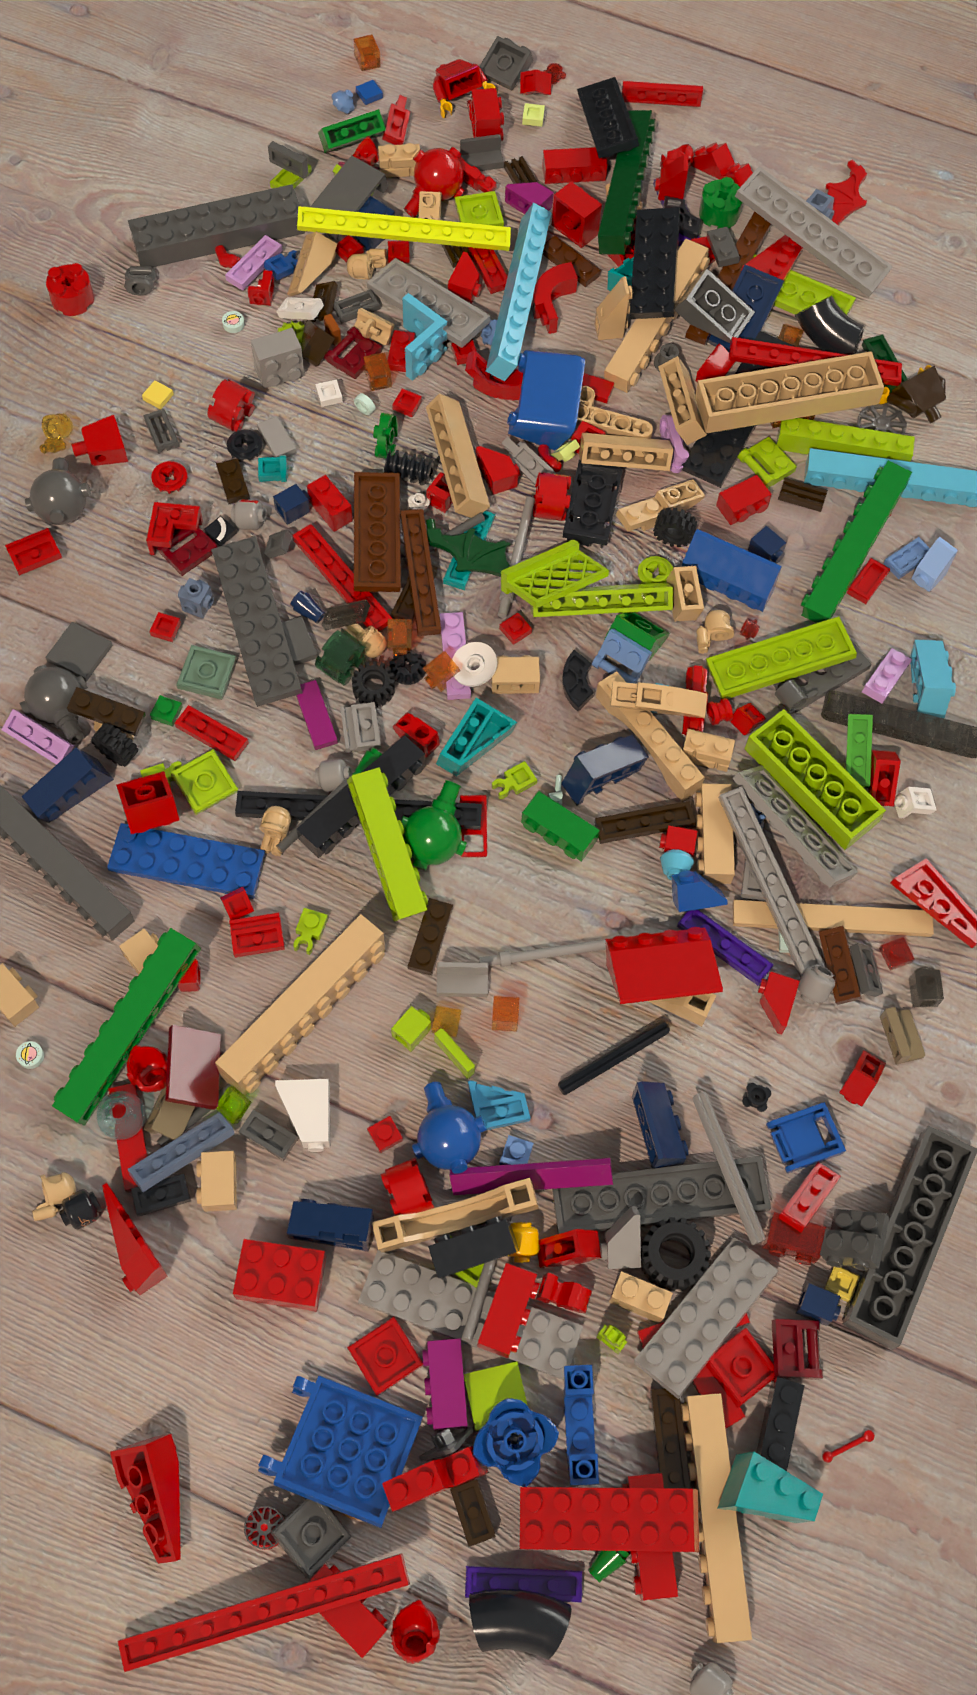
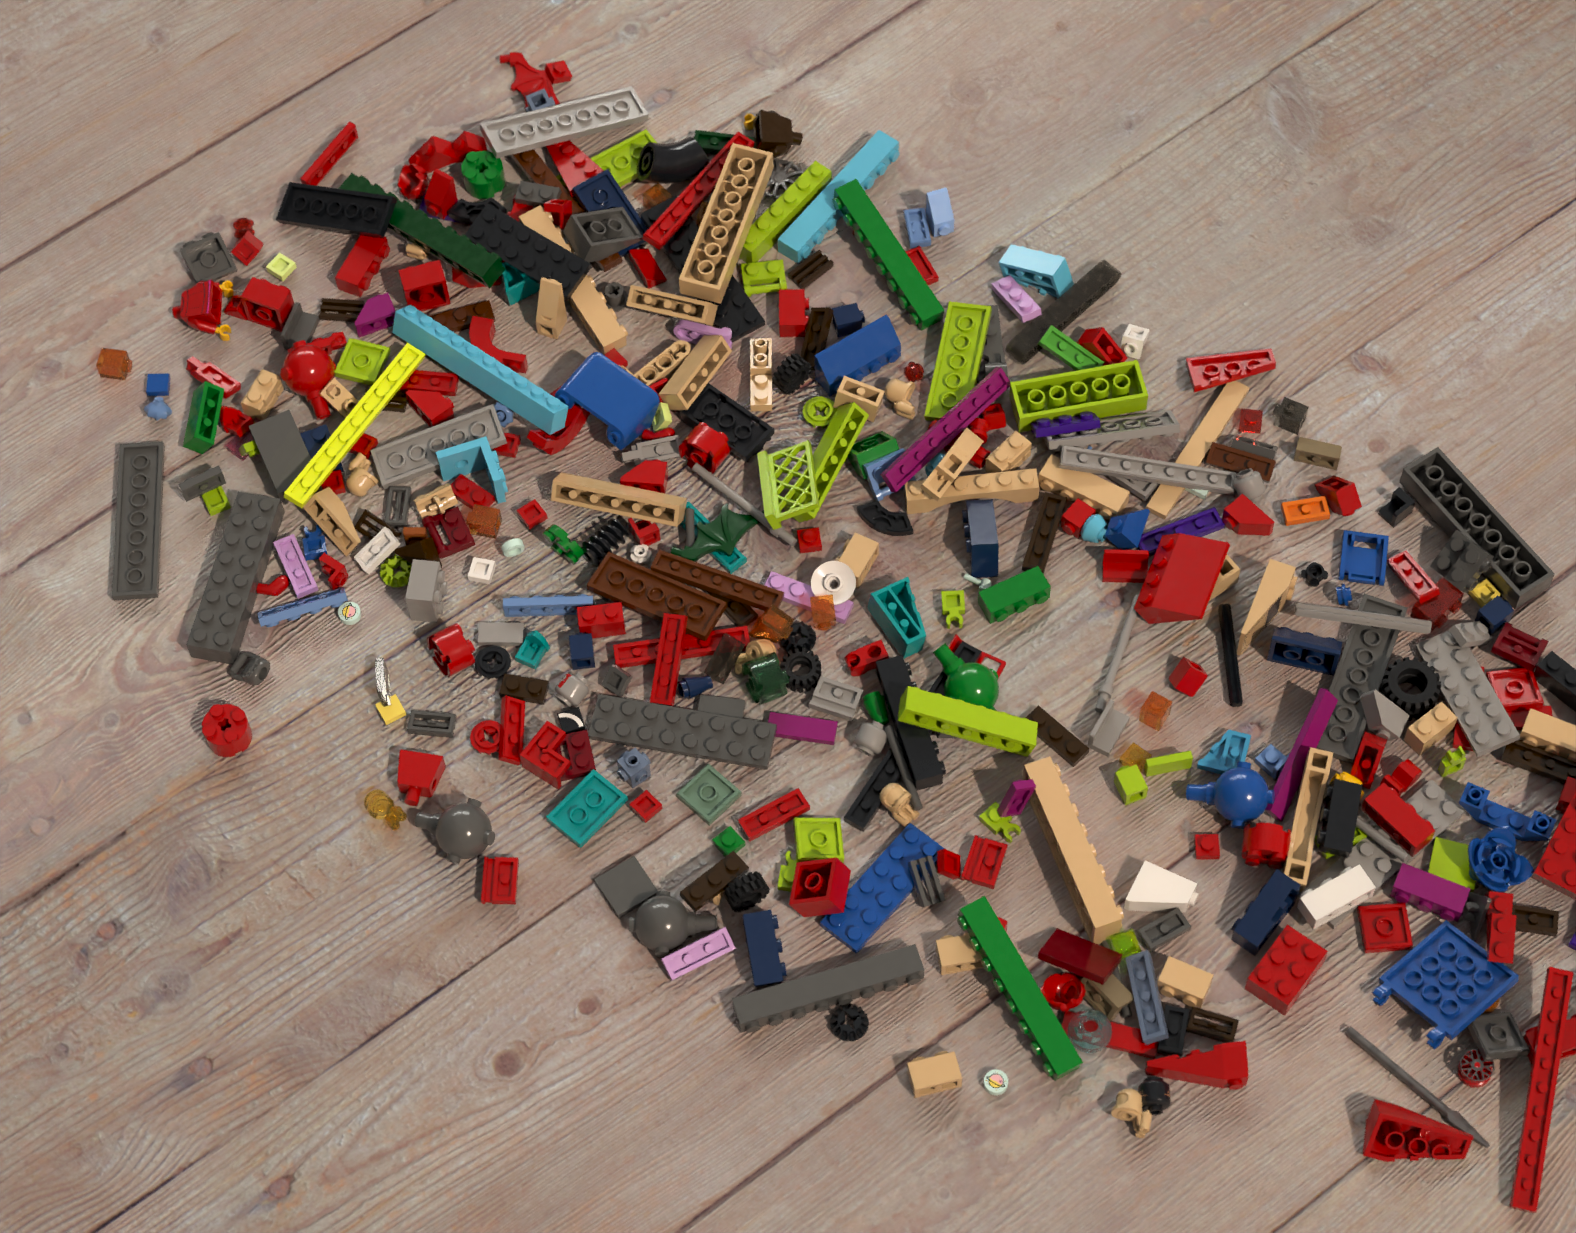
camera: 55 degrees left, 5 degrees down
(32, 907) = (846, 1032): none -> black gear
(138, 583) = (587, 808): none -> teal plate
(175, 373) = (383, 682): none -> clear smoke tile
(186, 488) = (511, 730): none -> red tile
(191, 1254) = (1210, 1025): none -> dark brown tile
(193, 908) = (934, 878): none -> dark grey tile
(199, 1529) = (1452, 1117): none -> flat silver piece
(213, 282) = (294, 609): none -> medium blue plate
(232, 140) = (138, 521): none -> dark grey plate
(316, 570) = (668, 659): none -> red plate
(320, 454) = (545, 606): none -> medium blue plate
(328, 926) = (1016, 798): none -> magenta plate
(383, 1285) = (1335, 896): none -> white brick
(563, 1027) = (1188, 677): none -> red panel
(652, 910) = (1125, 566): none -> red panel
(691, 1062) = (1274, 590): none -> tan slope
(695, 678) = (945, 429): none -> magenta plate
(716, 263) = (560, 211): none -> red panel
(736, 527) = (816, 333): none -> dark brown plate
(748, 1136) = (1344, 595): none -> blue plate
(772, 781) = (1065, 424): none -> dark purple plate
(776, 1288) = (1470, 634): none -> light grey plate
(824, 1053) = (1305, 510): none -> orange plate
(867, 208) = (558, 72): none -> red plate
(885, 1145) = (1398, 508): none -> black panel

